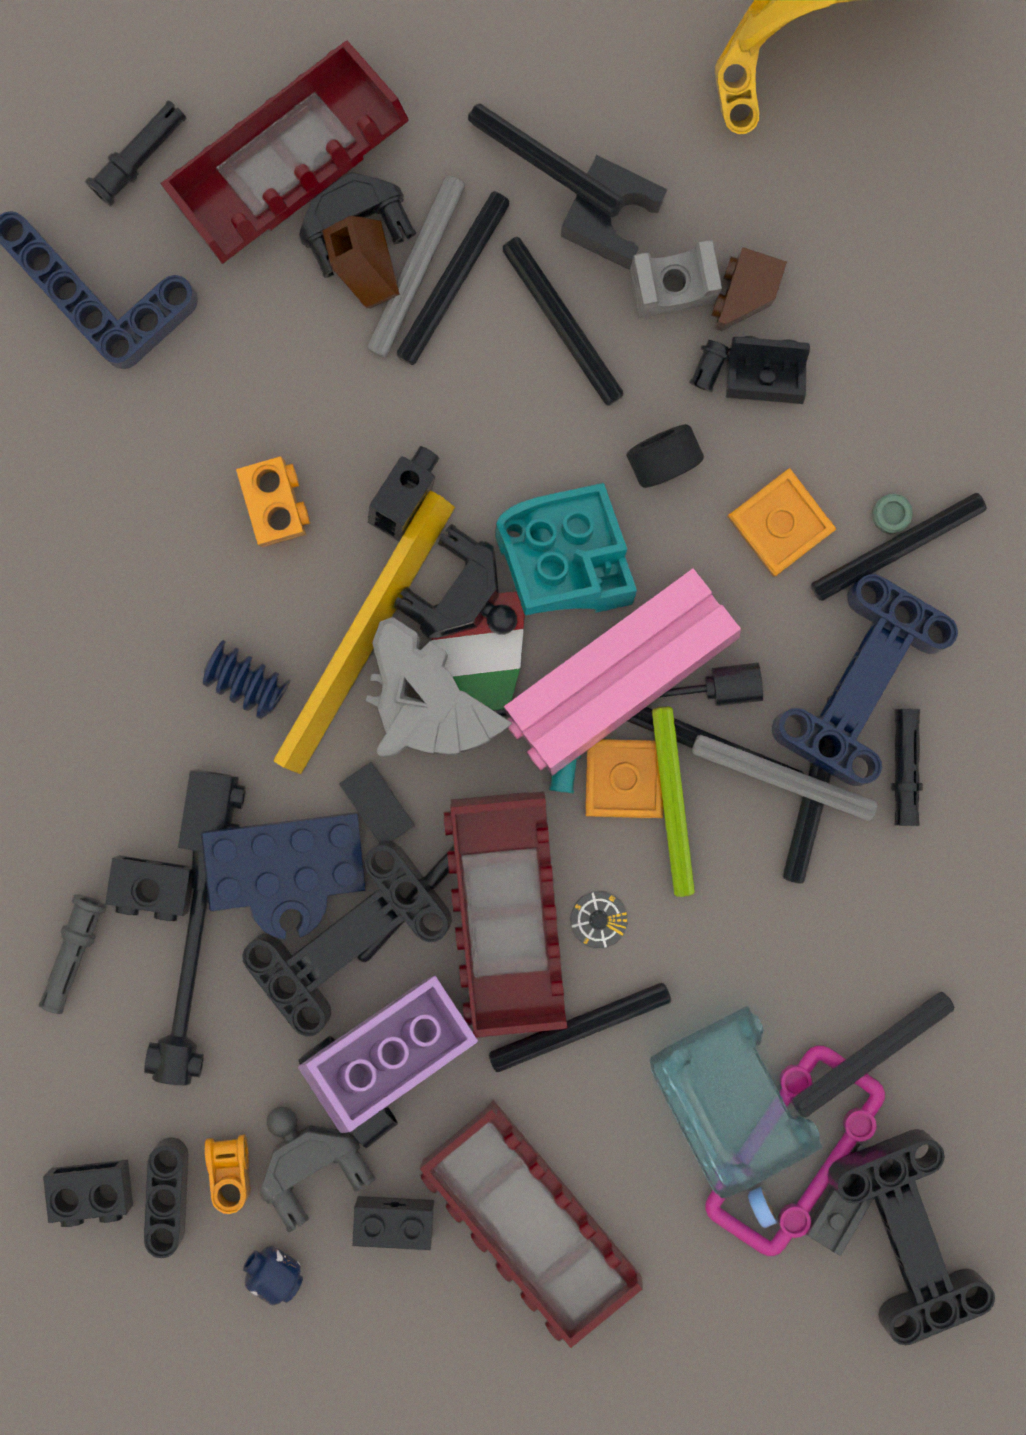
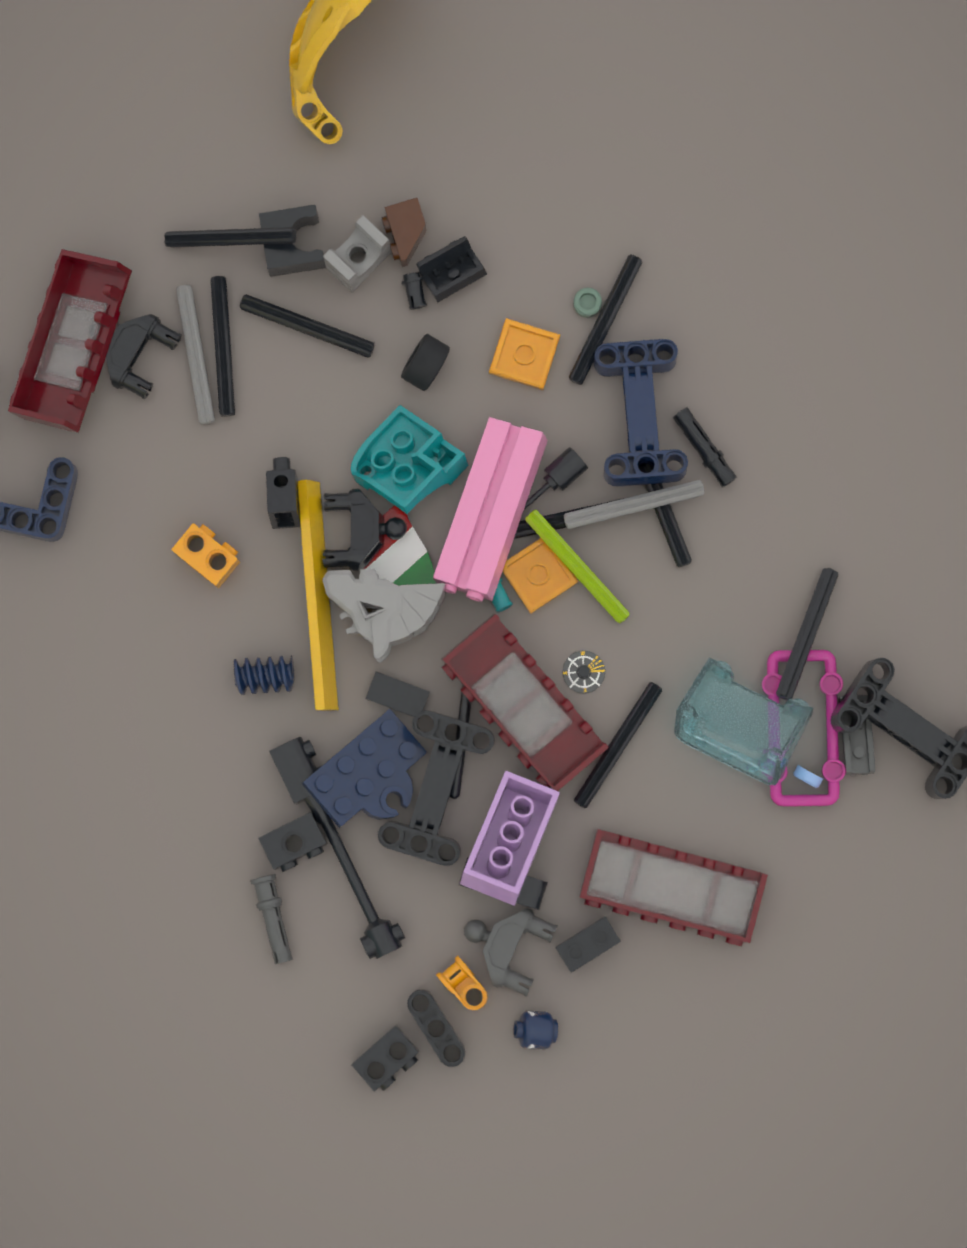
camera: 30 degrees left, 5 degrees down
(362, 259) = (160, 372): reddish brown slope -> none

